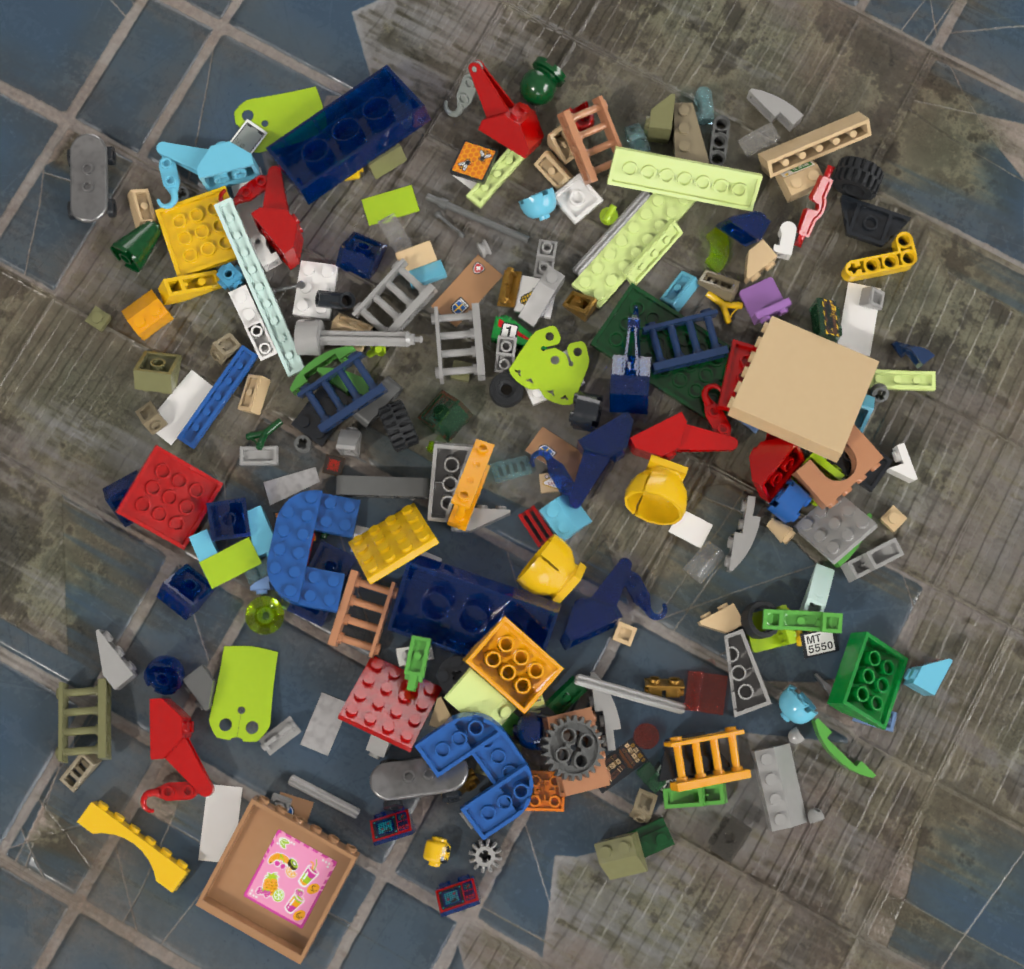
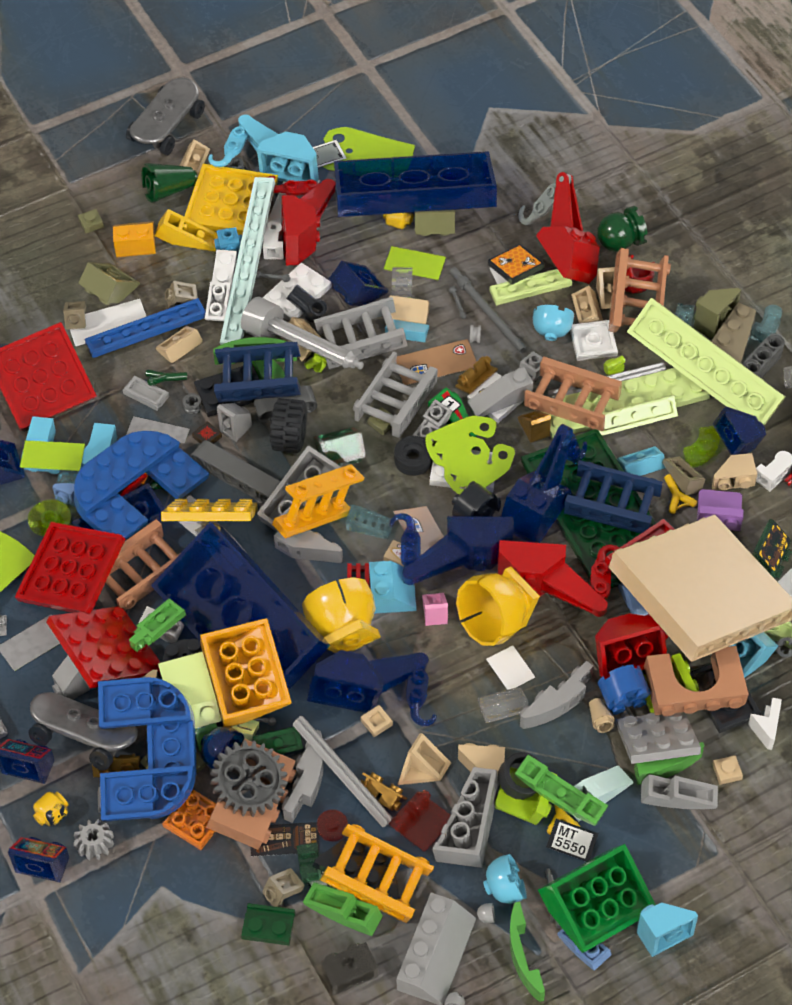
camera: 30 degrees right, 25 degrees down
(228, 519) = (76, 419): clear blue slope -> none
(316, 653) = (70, 568): none -> red plate
(586, 250) = (579, 378): none -> nougat fence
(606, 512) = (435, 609): none -> bright pink slope
(621, 855) = (226, 915): olive slope -> none
(680, 648) = (423, 763): none -> tan slope

